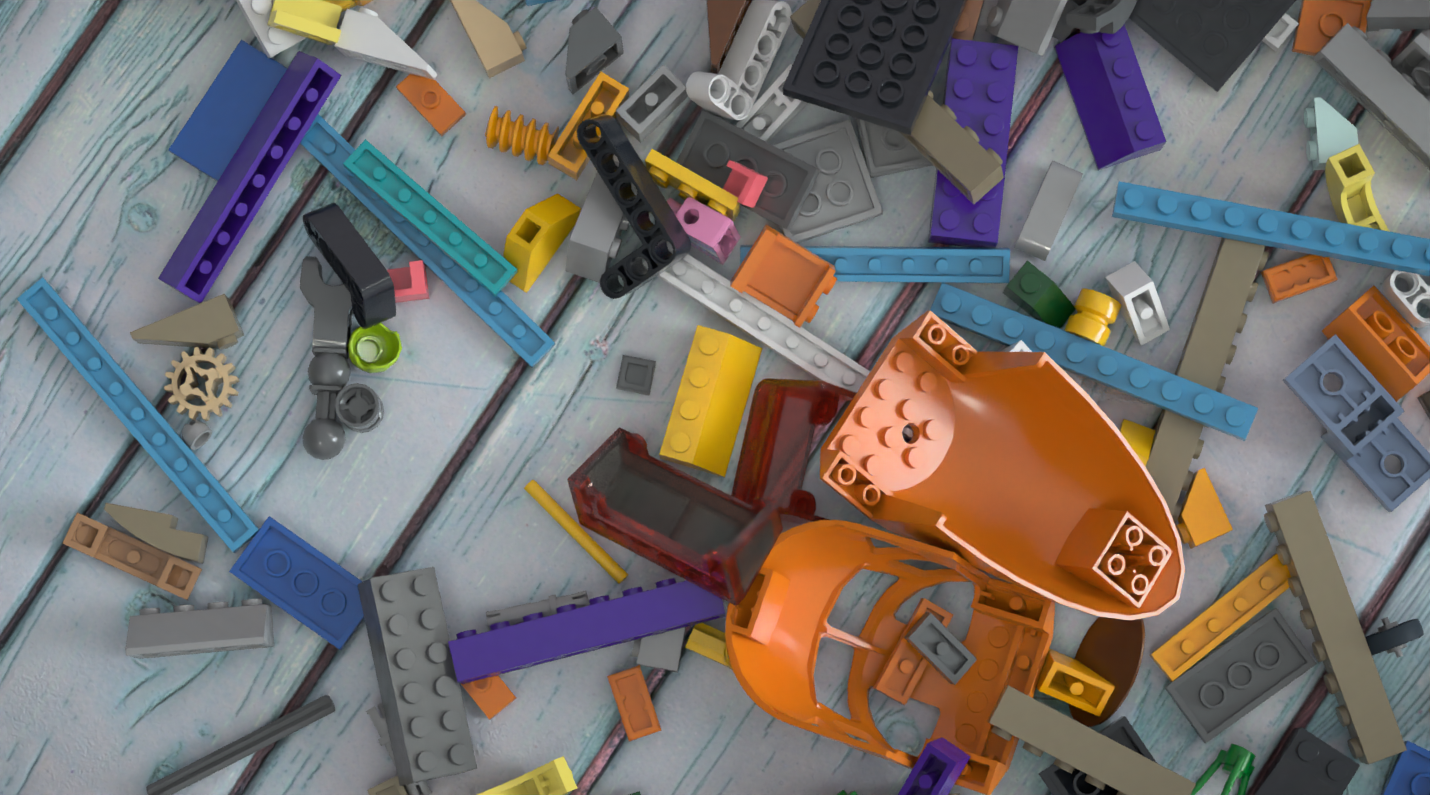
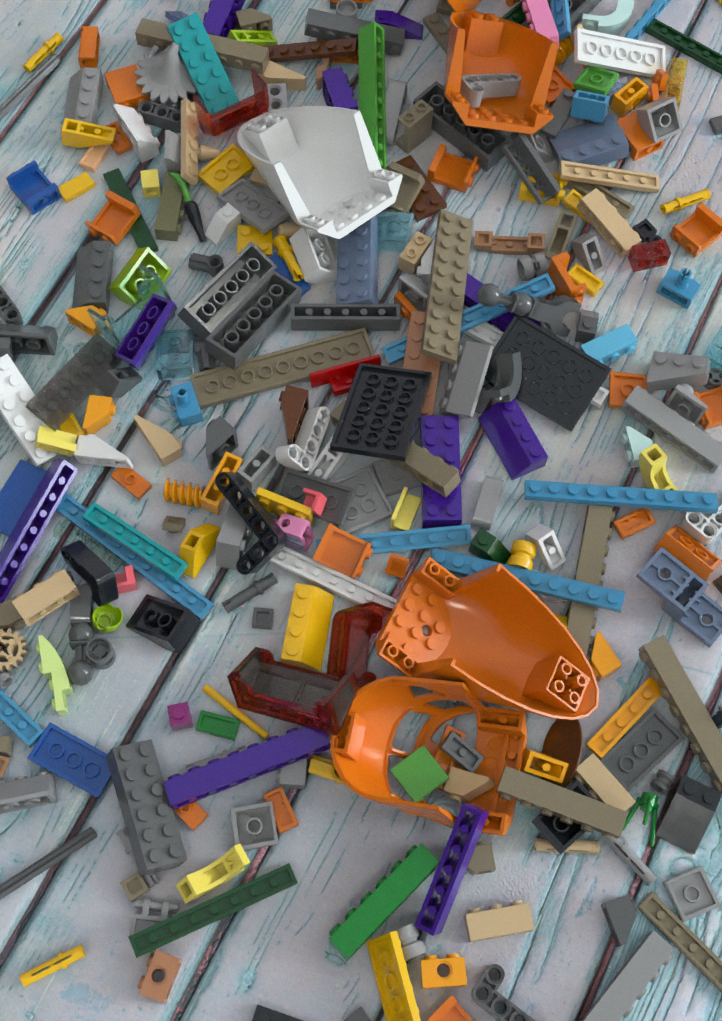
camera: 10 degrees left, 15 degrees down
(273, 305) = (45, 597): none -> tan brick
(280, 421) = (55, 670): none -> yellowish green slope
(467, 366) = (163, 623): none -> black slope
(483, 531) = (180, 716): none -> magenta brick
(499, 190) = (173, 524): none -> dark tan plate
(544, 550) = (217, 725): none -> green tile
(589, 727) = (254, 826): none -> light grey slope
(619, 328) = (245, 595): none -> dark grey pin
(866, 676) = (419, 774): none -> bright green tile
(875, 309) = (397, 565): none -> orange plate
(902, 211) = (405, 511): none -> light yellow panel
(940, 701) = (466, 784): none -> tan slope
(1166, 727) = (602, 784): none -> tan brick
(1267, 732) = (663, 782): none -> dark grey wheel

